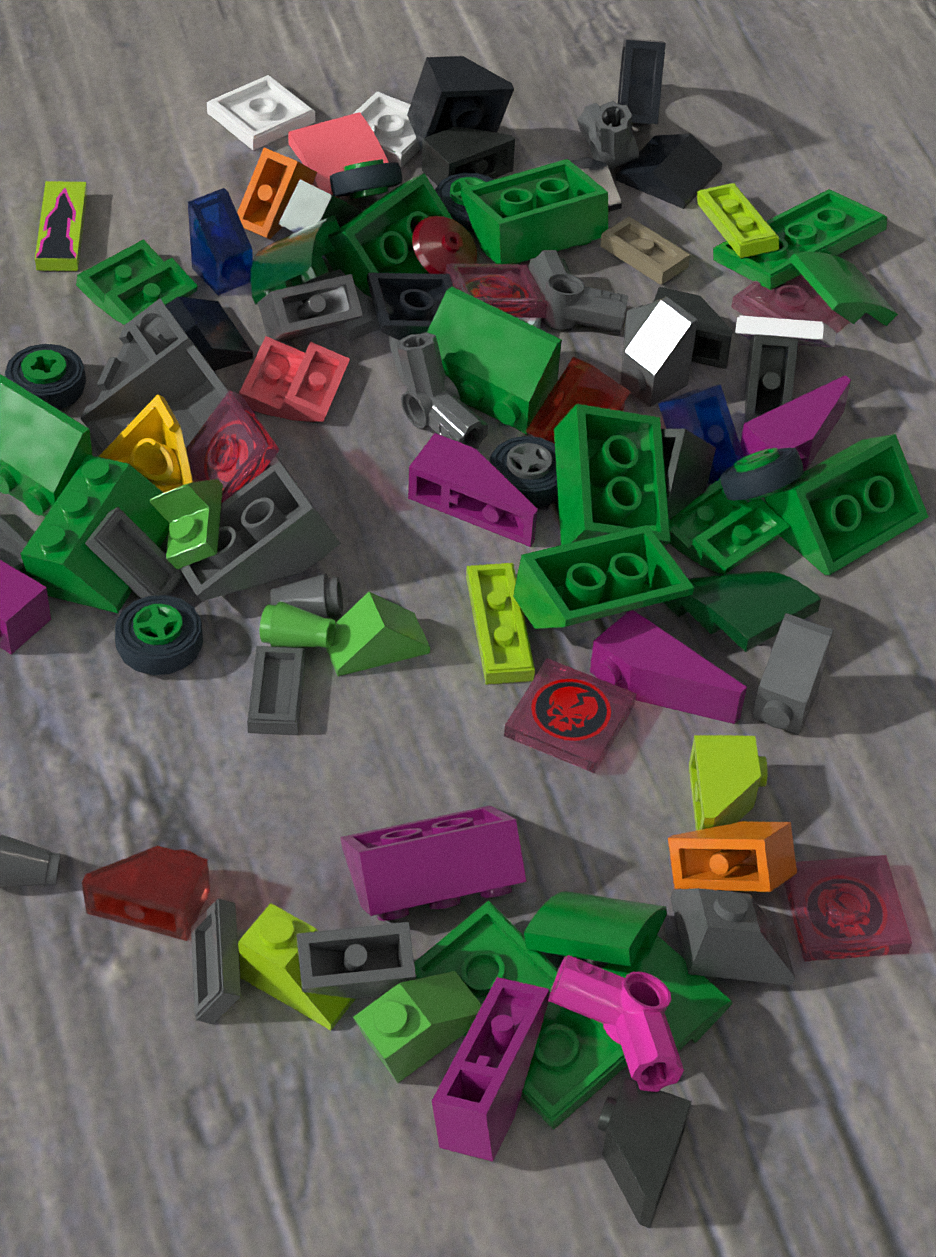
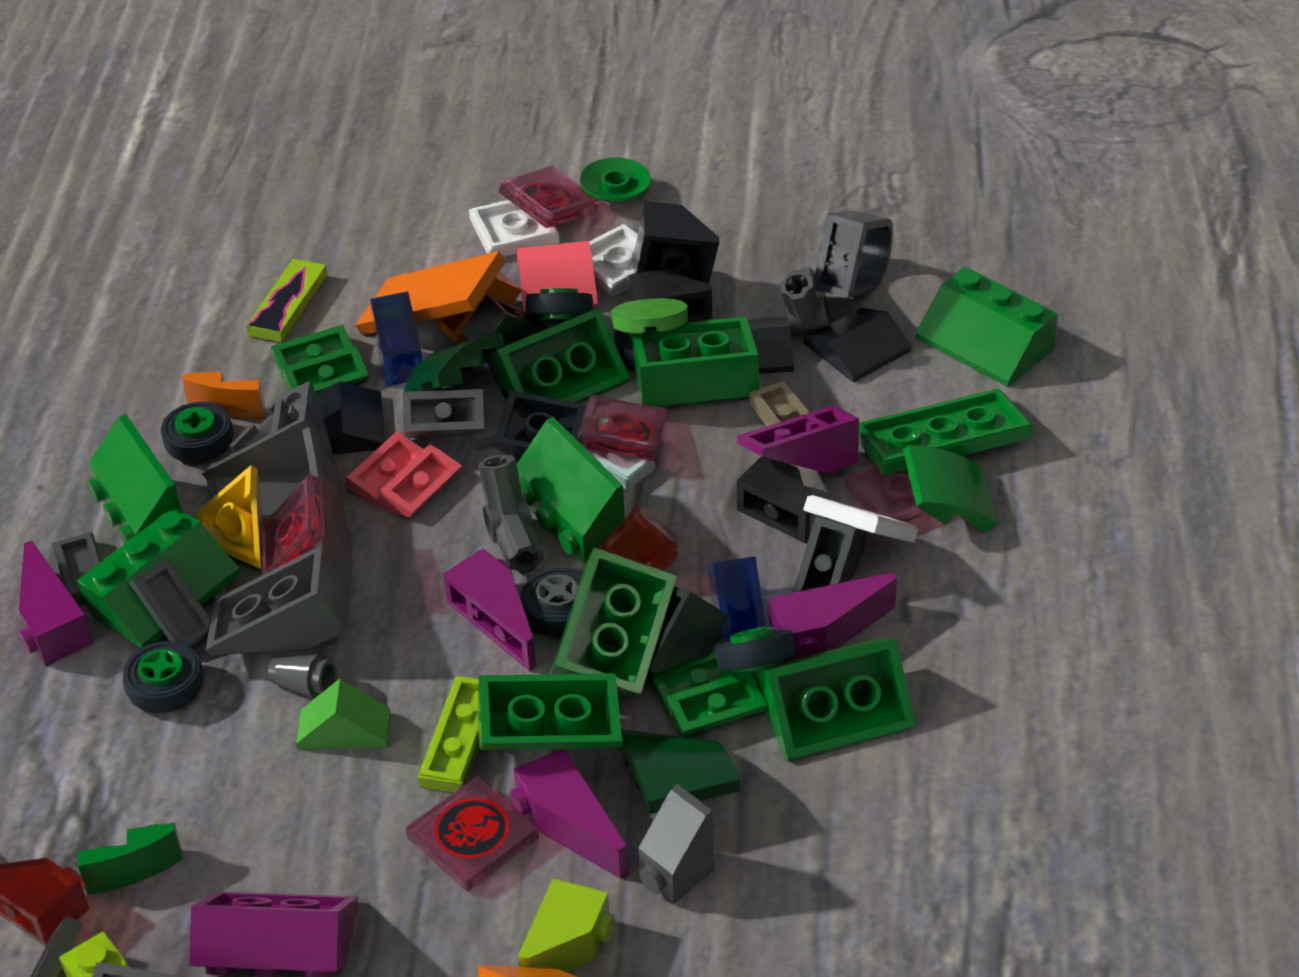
camera: 25 degrees right, 5 degrees down
(75, 331) = (239, 398): none -> orange slope
(193, 520) = (236, 578): bright green slope -> none
(250, 817) = (145, 855): none -> green slope
(253, 179) = (441, 289): none -> orange tile
(276, 690) = (236, 749): dark grey tile -> none
(286, 75) = (548, 196): none -> clear pink tile
(295, 628) = (271, 695): bright green cone -> none
(345, 48) = (615, 179): none -> green dish
(442, 242) = (599, 374): dark red piece -> none
(473, 172) = (649, 313): none -> bright green tile
(570, 300) = (684, 454): dark grey piece -> none
(657, 350) = (729, 516): dark grey slope -> none
(698, 265) = (816, 440): none -> magenta slope
(737, 220) = (887, 403): lime tile -> none
(789, 132) = (988, 326): none -> green slope

